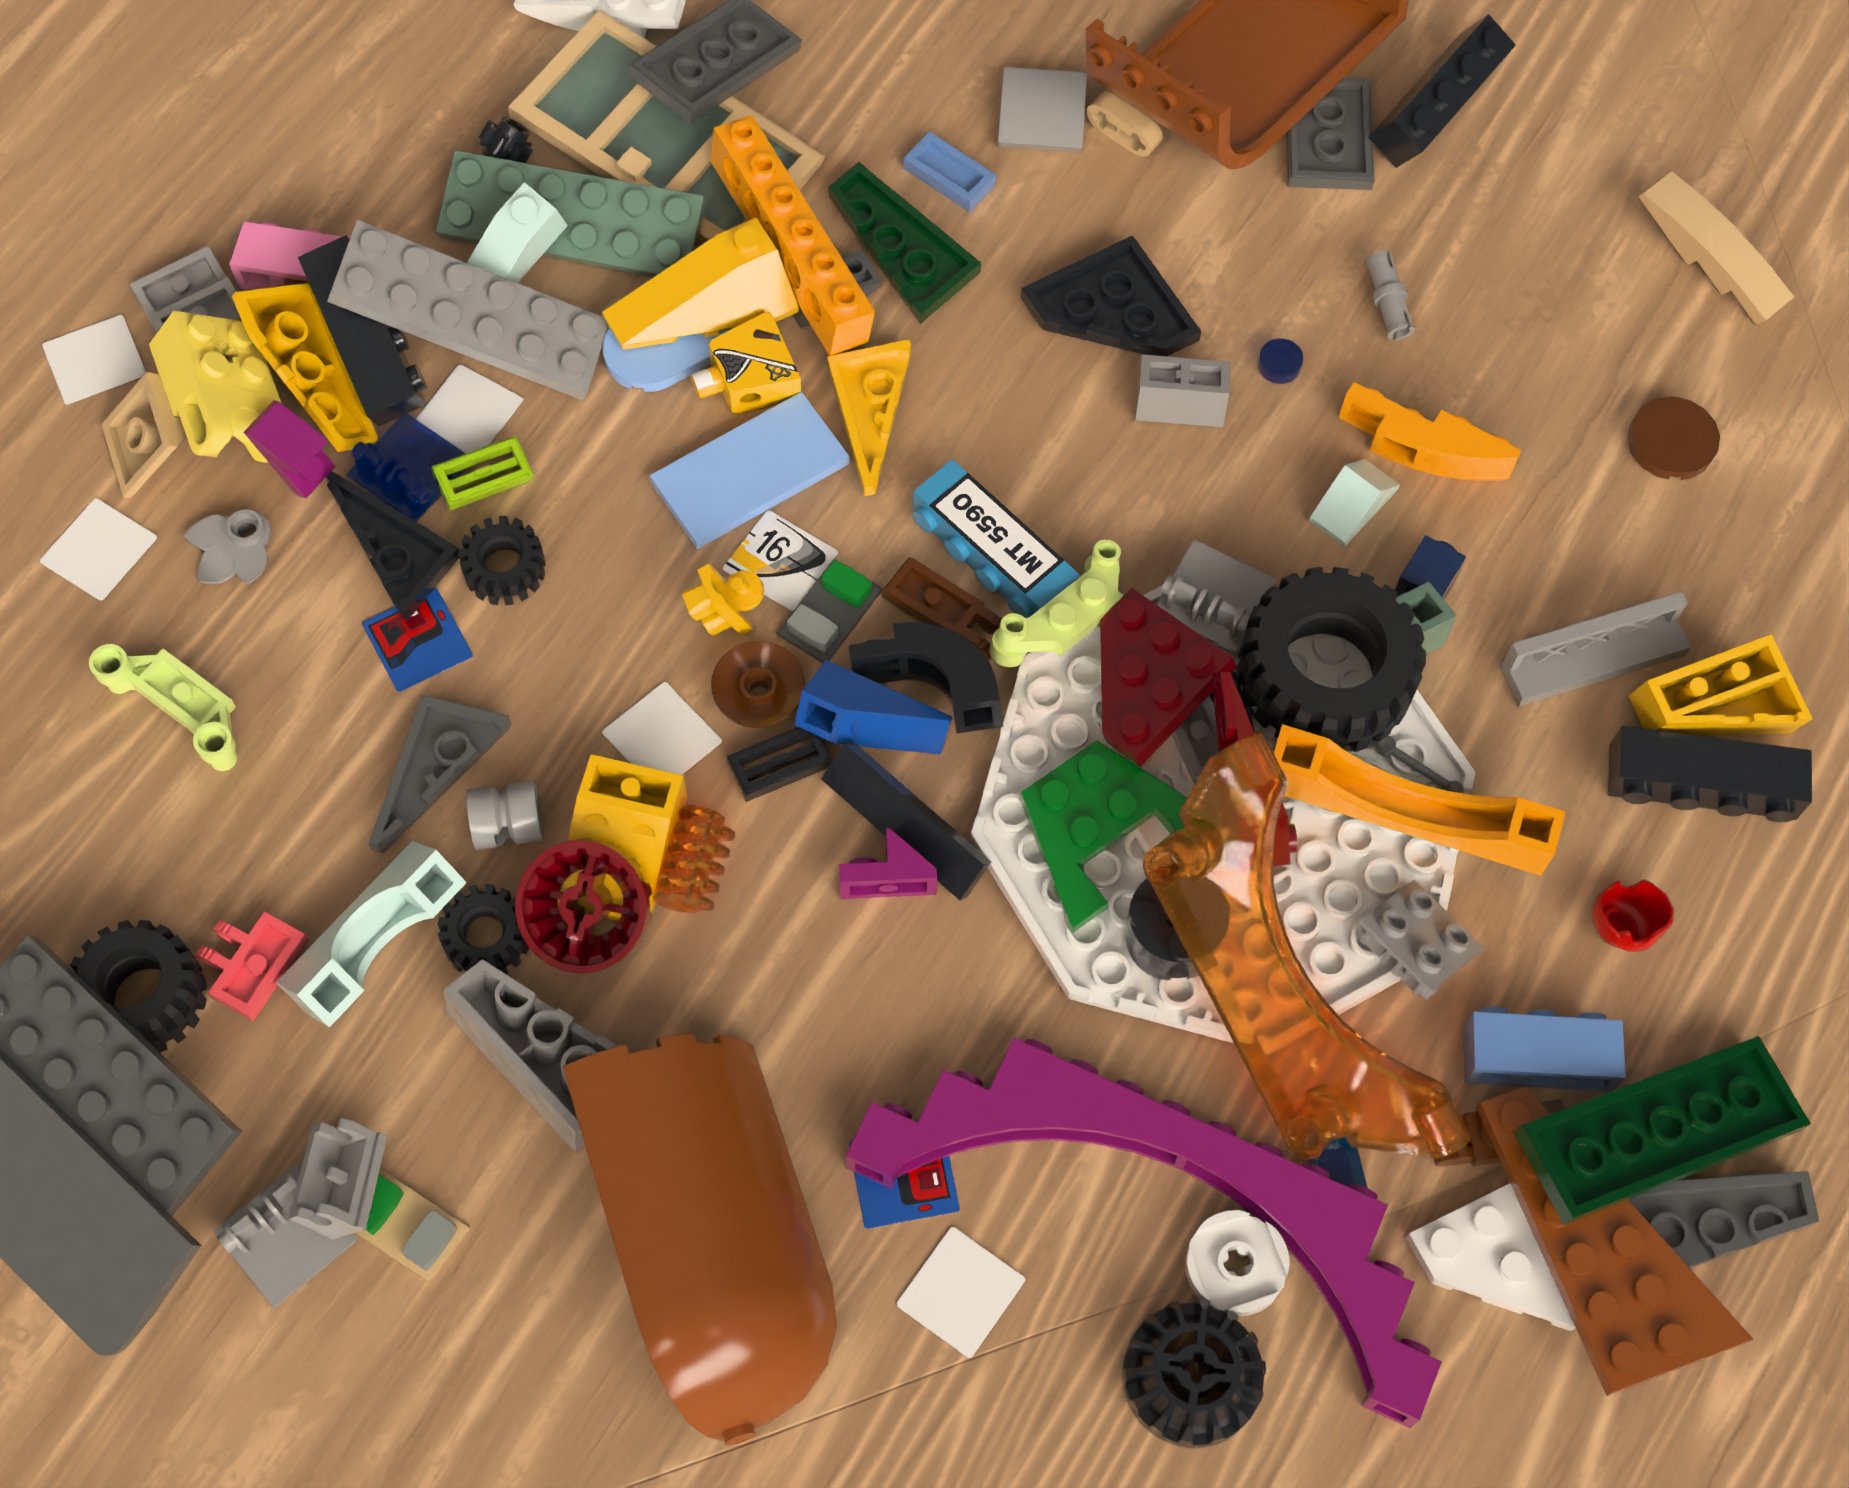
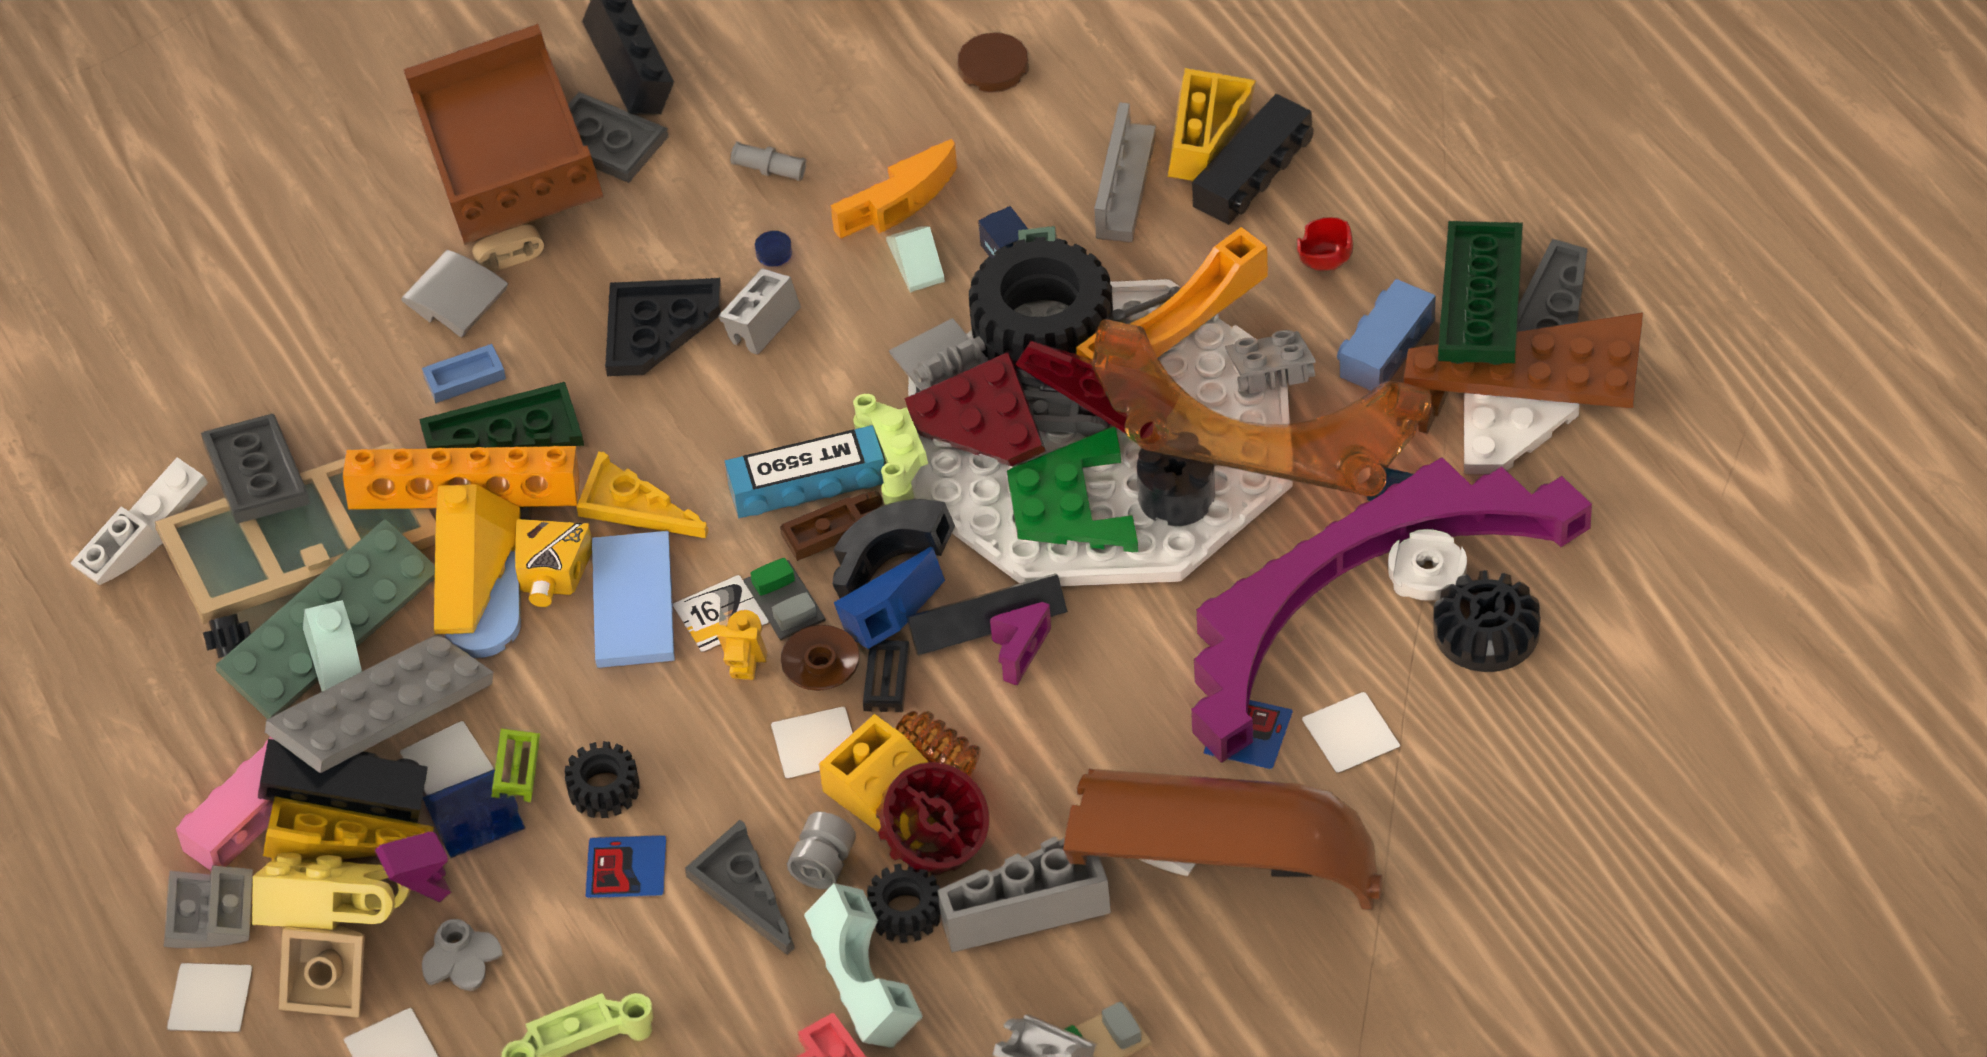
camera: 55 degrees left, 15 degrees down
(401, 551) = (543, 843): black wing -> none

